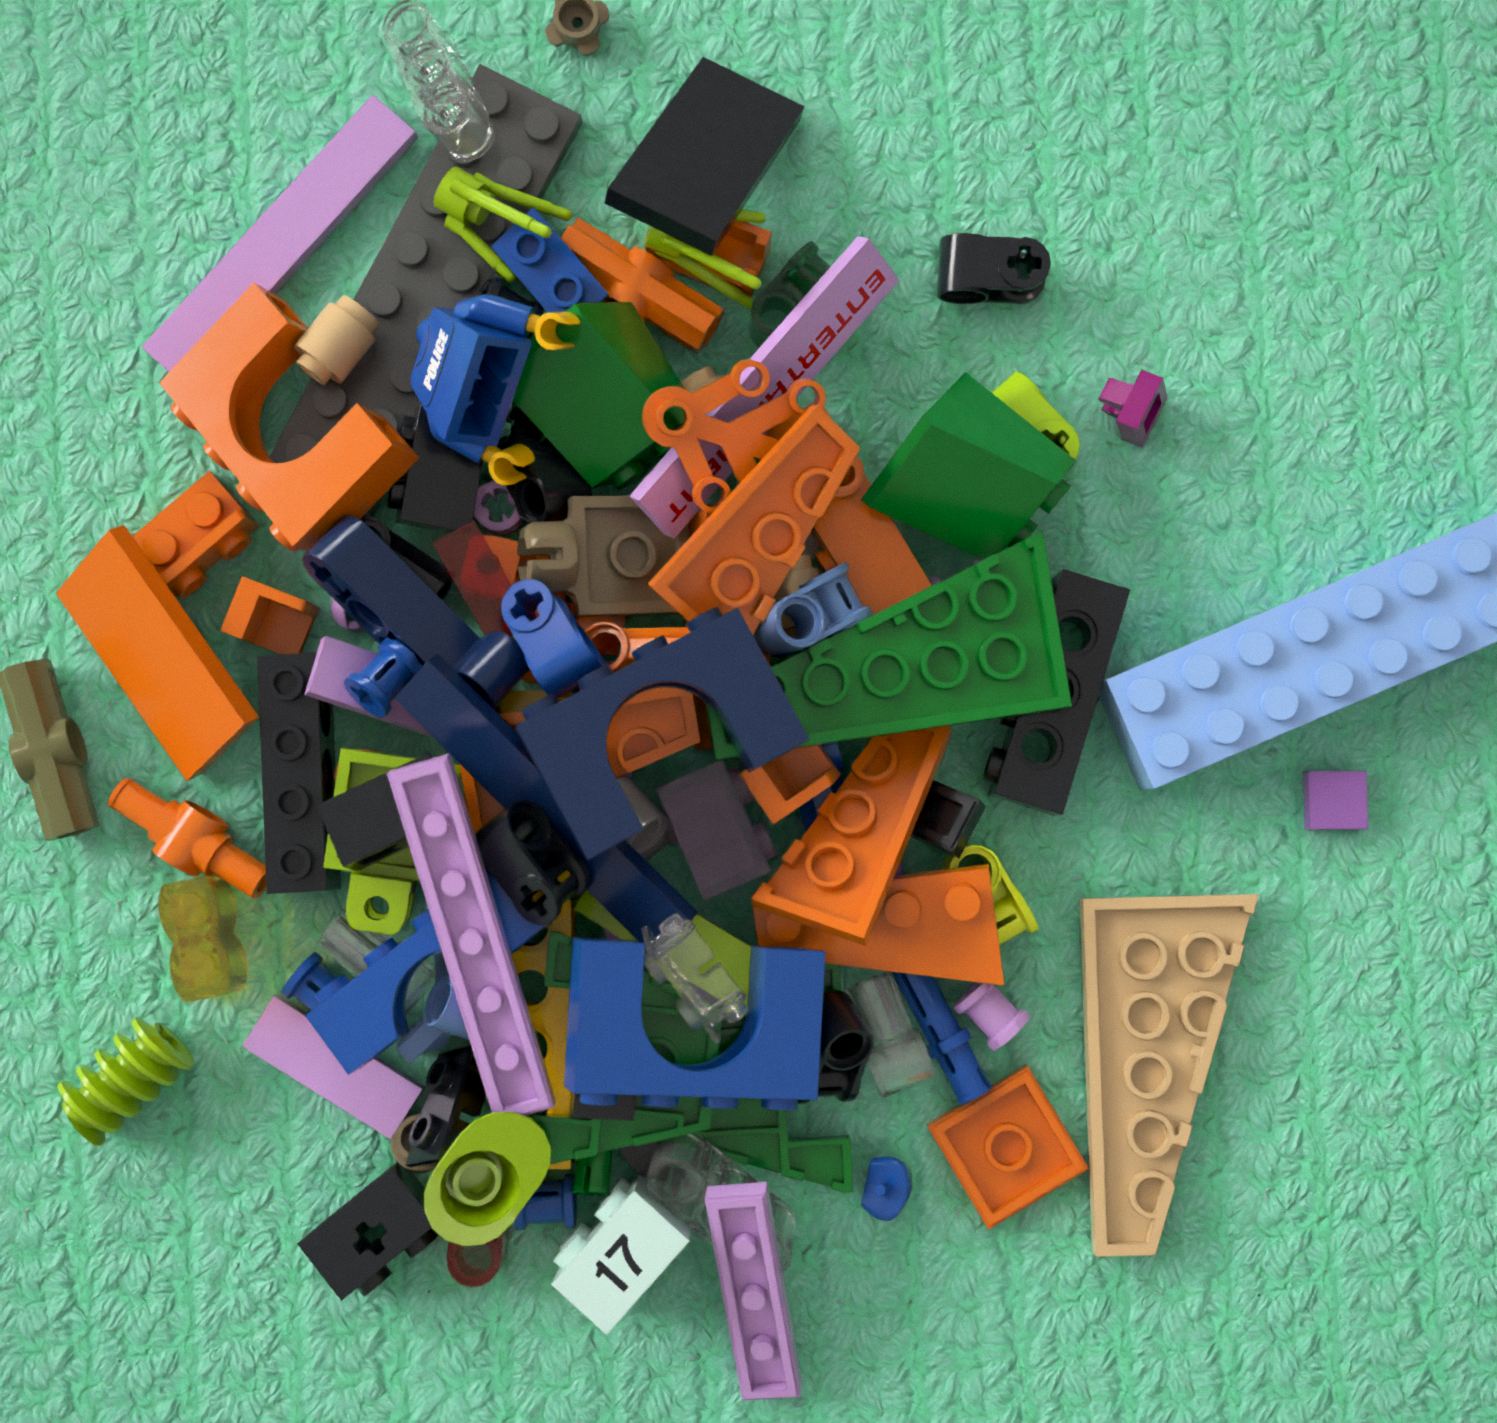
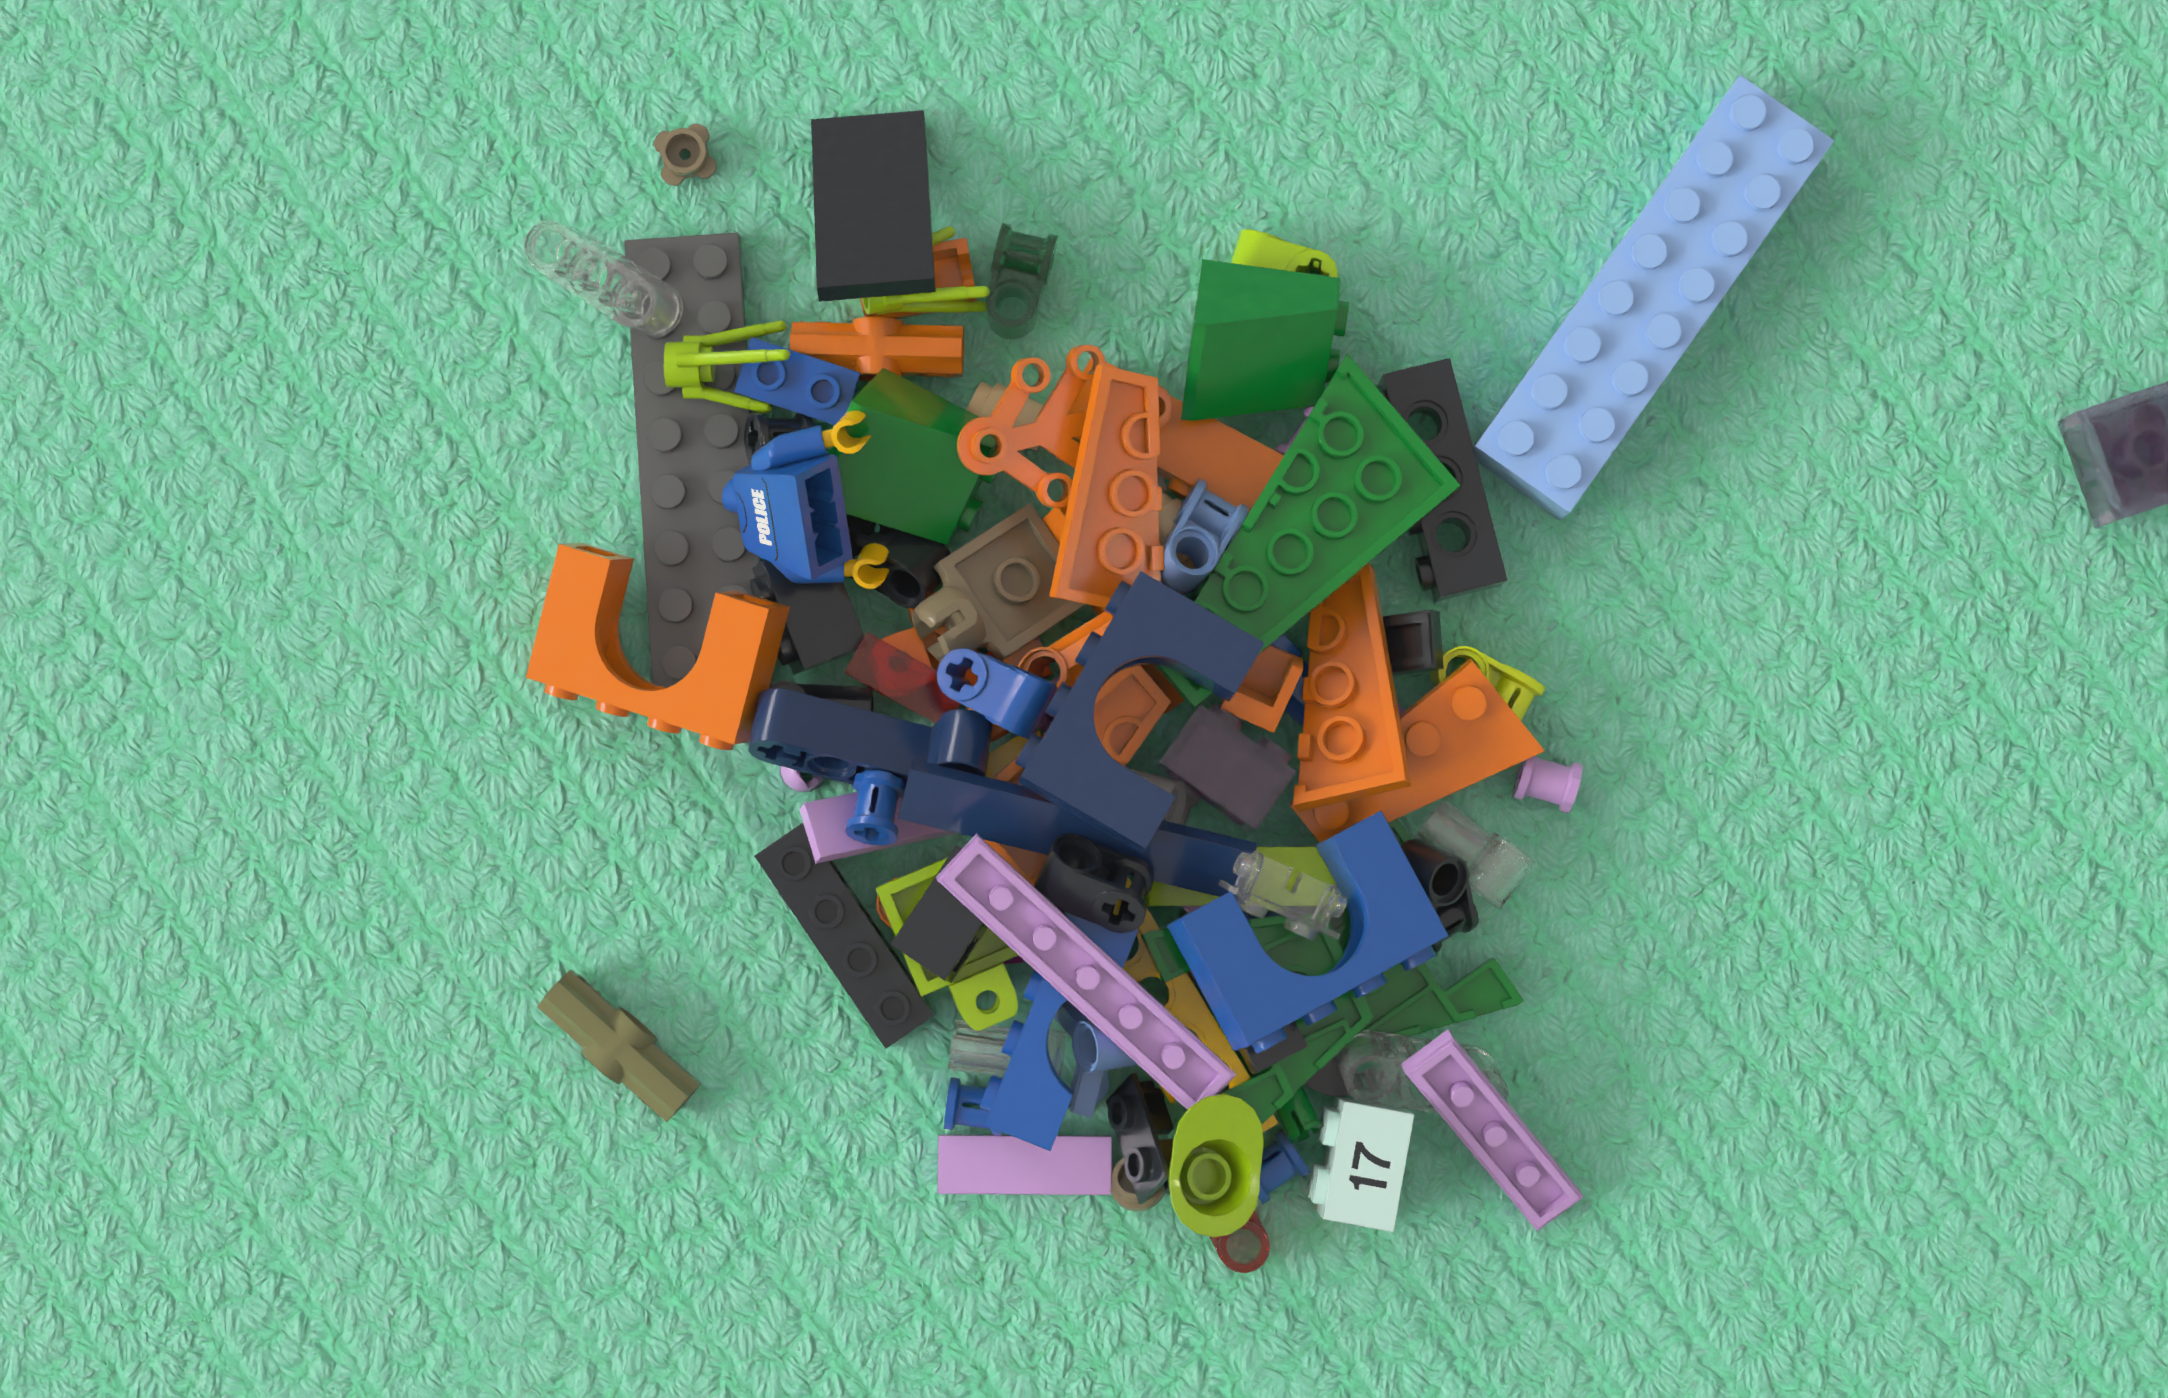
camera: 30 degrees left, 0 degrees up
(124, 1080) = (855, 1280): lime piece -> none
(156, 653) = (663, 907): orange tile -> none
(189, 837) = (786, 1045): orange pin -> none
(196, 534) = (627, 792): orange bracket -> none
(205, 952) = (861, 1133): clear yellow brick -> none
(269, 617) = (739, 820): orange panel -> none
(290, 226) = (546, 485): lavender tile -> none
(336, 341) = (655, 551): tan brick -> none
(339, 1242) = (1118, 1302): black brick -> none
(484, 515) = (866, 624): lavender bush -> none
(792, 352) = (1047, 333): lavender tile -> none
(886, 1188) = (1549, 981): blue piece -> none
(945, 1037) = (1519, 824): blue pin -> none
(983, 270) = (1158, 162): black piece -> none
(1007, 1147) = (1629, 886): orange tile -> none
(1134, 405) = (1359, 199): magenta tile -> none
(1151, 1025) = (1687, 711): tan wing -> none
(1335, 800) = (1727, 429): medium lavender tile -> none

